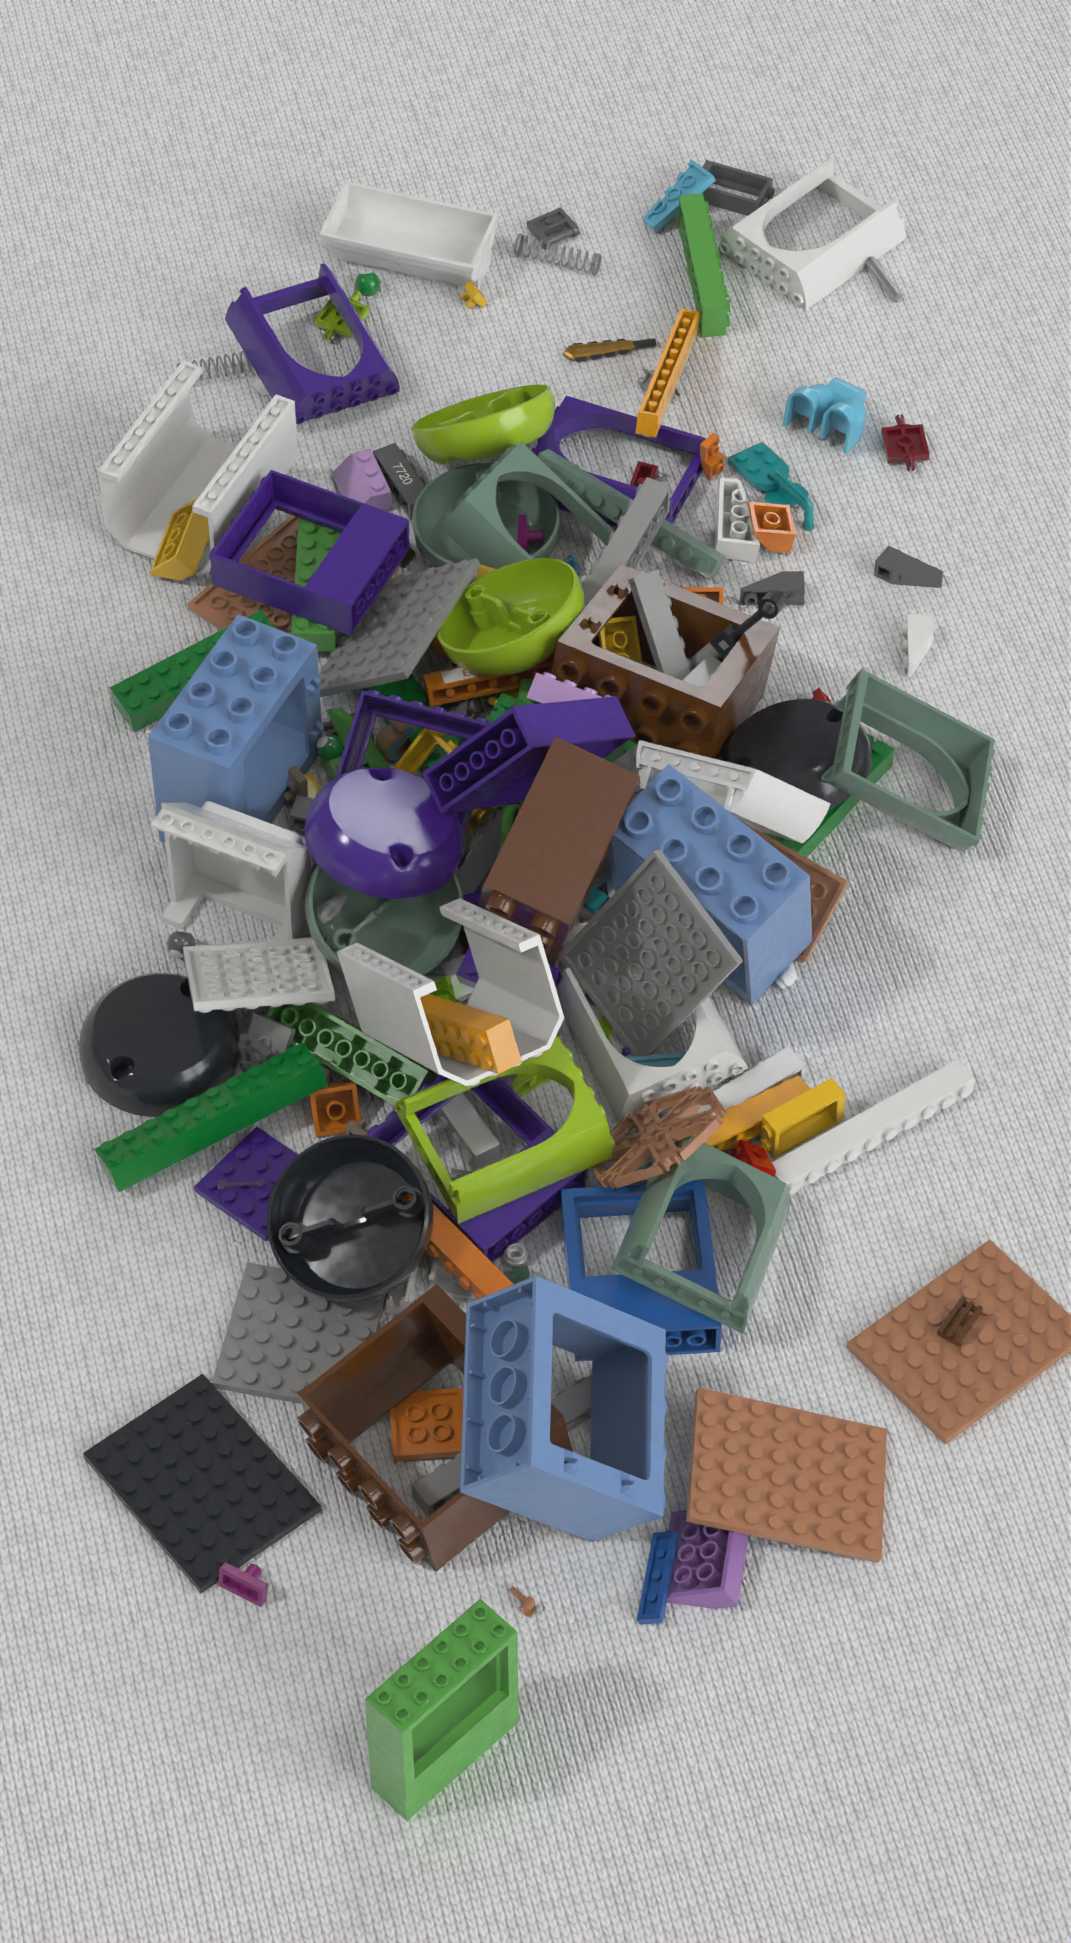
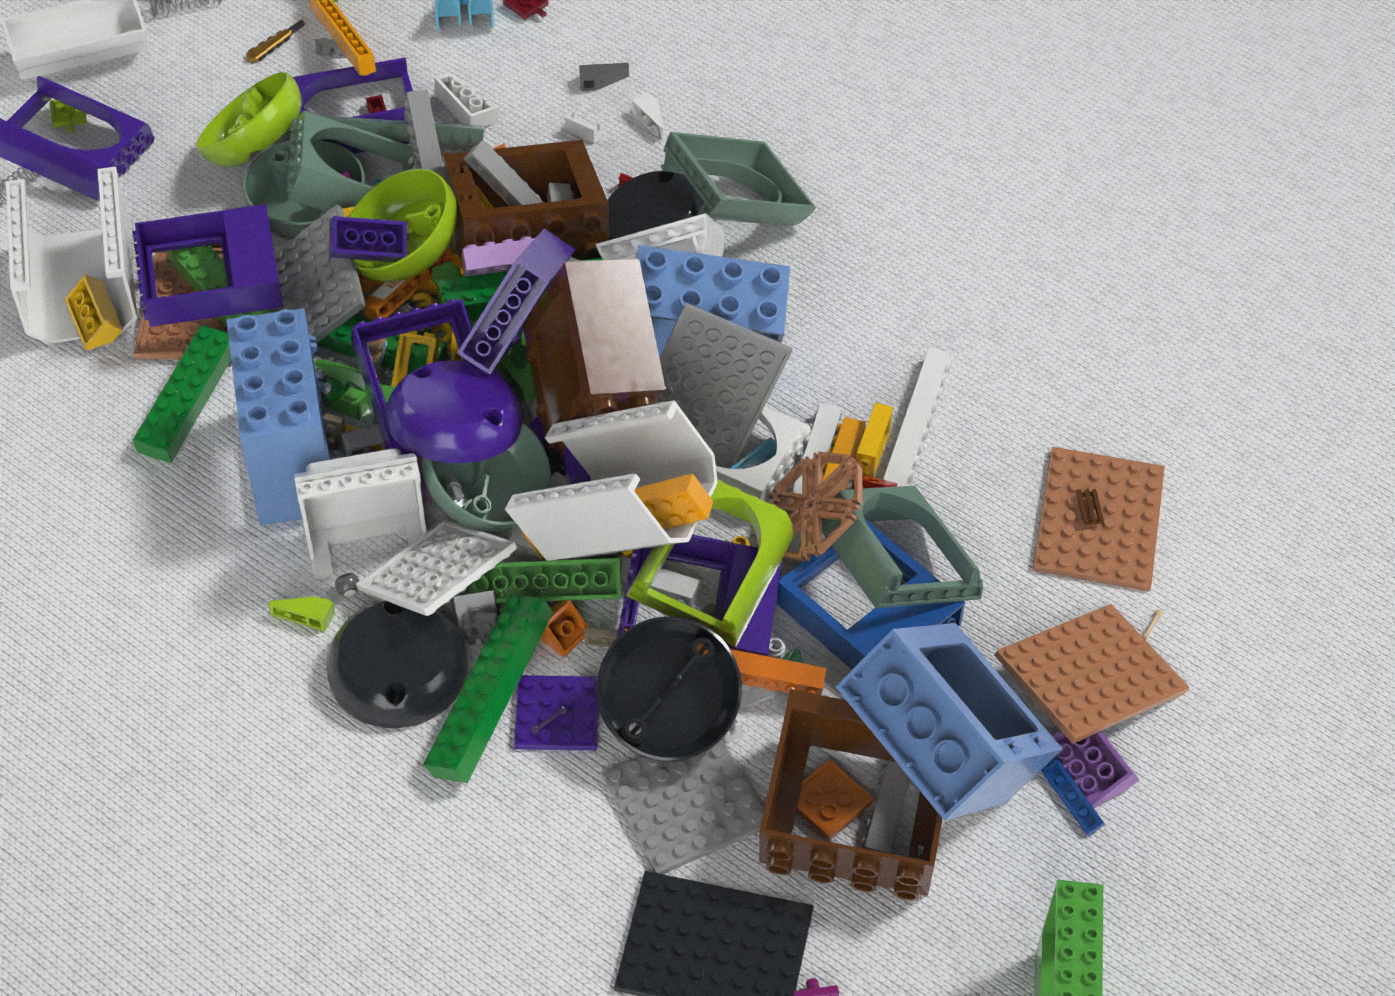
camera: 40 degrees left, 0 degrees up
(124, 945) = (308, 611): none -> lime slope
(362, 480) = (182, 202): lavender slope -> none
(367, 283) = (68, 80): green piece -> none
(400, 476) = (210, 192): dark grey brick -> none
(461, 610) = (367, 239): none -> dark purple brick
(474, 296) = (151, 52): yellow tile -> none
(528, 1603) = (1010, 873): nougat hand -> none
(710, 457) = (414, 70): orange slope -> none
(725, 640) = (556, 164): black piece -> none
(769, 473) = (461, 63): teal plate -> none
(772, 525) = (496, 90): orange slope -> none
(787, 582) = (533, 128): dark grey slope -> none
(833, 618) = (582, 128): none -> white hinge
(928, 1470) = (1158, 613): none -> tan hinge

